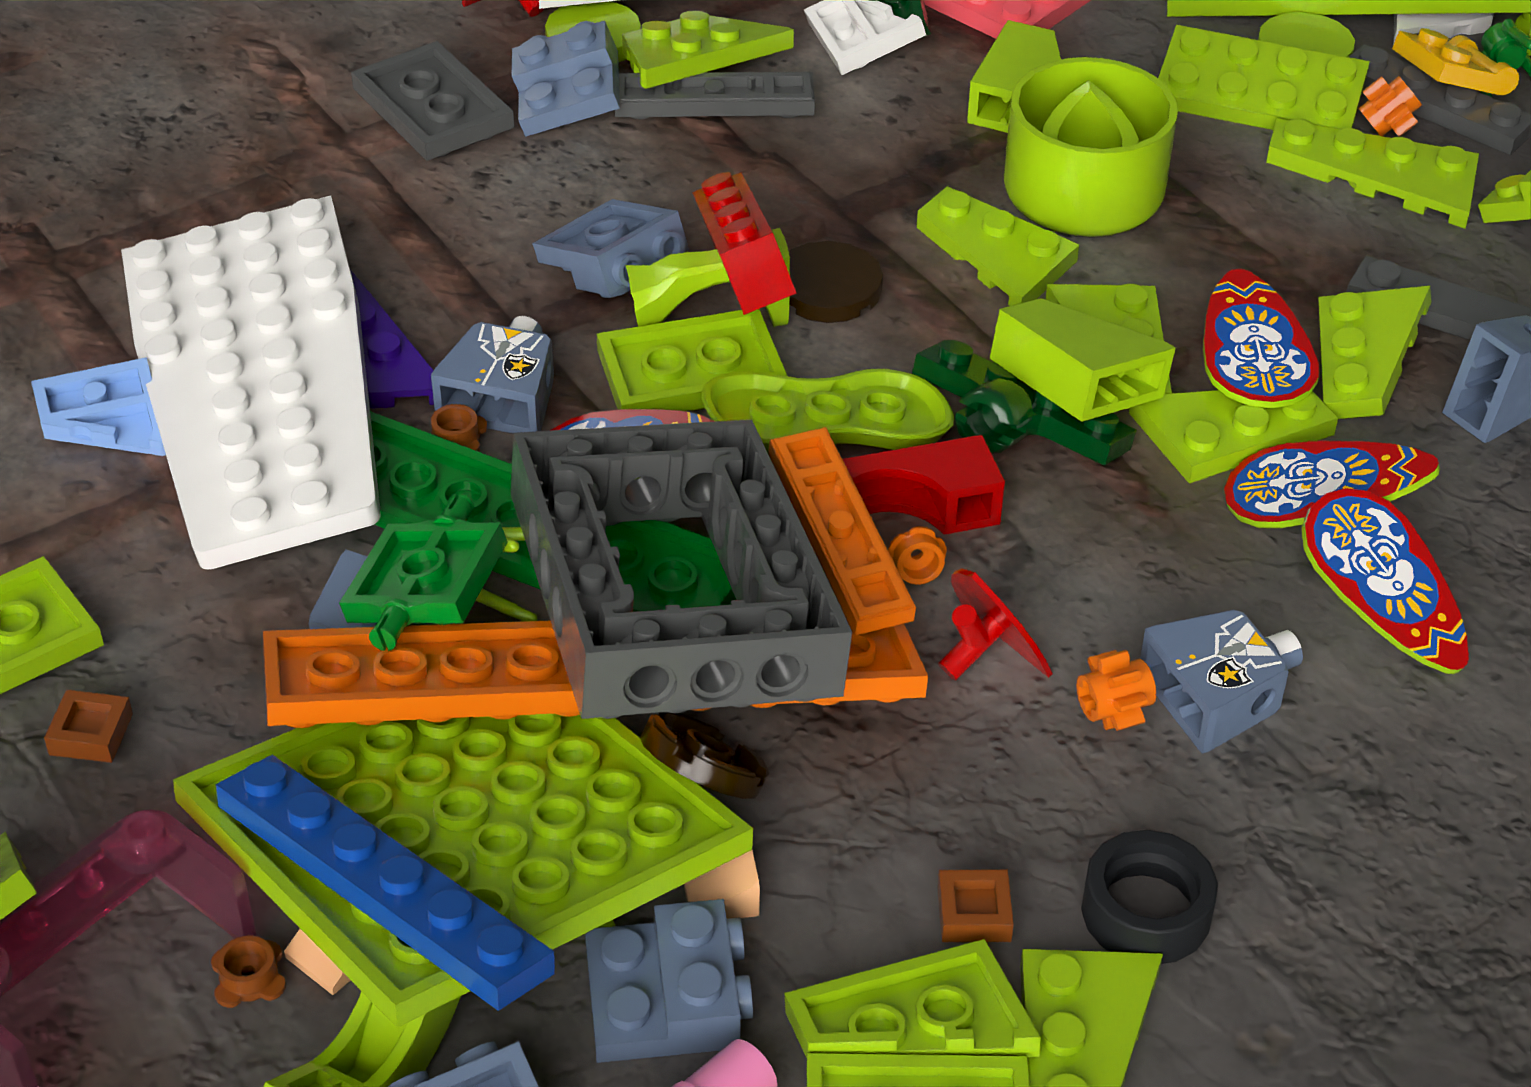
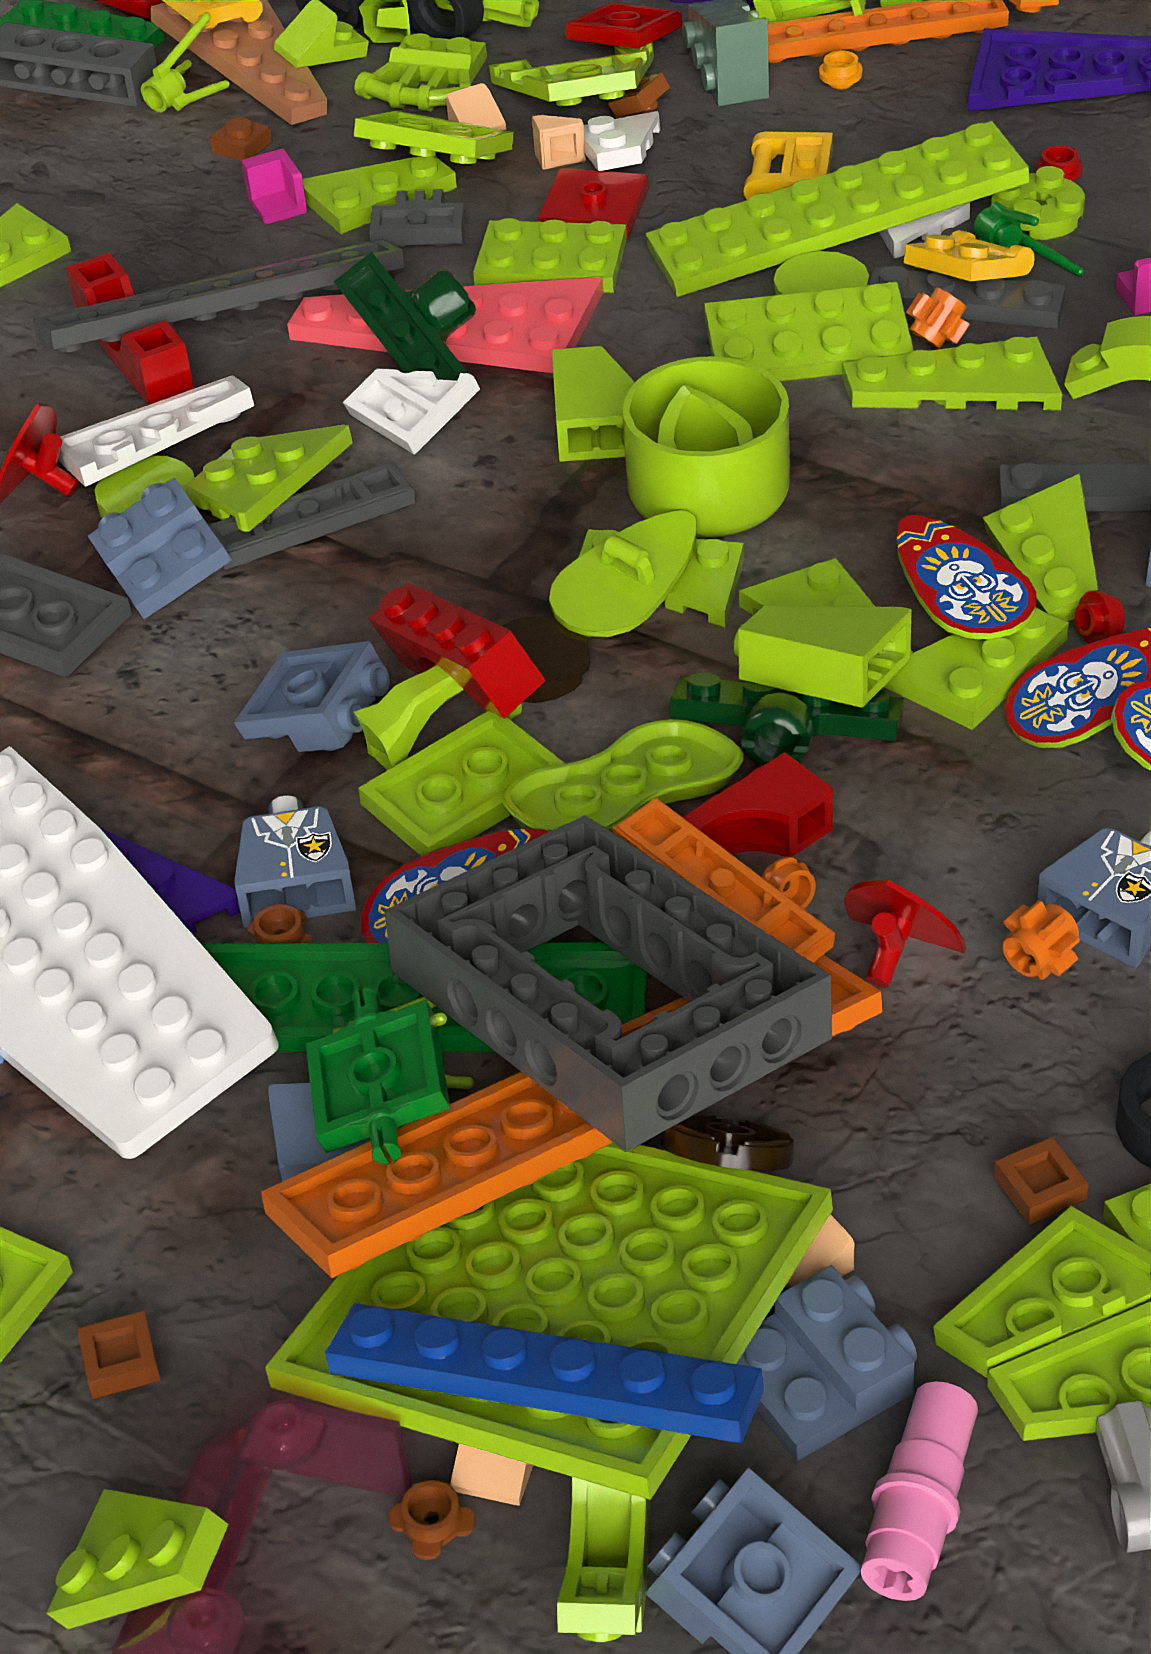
camera: 20 degrees left, 0 degrees up
(949, 235) = (624, 576): none -> lime shield
(1370, 420) = (1099, 616): none -> red plate

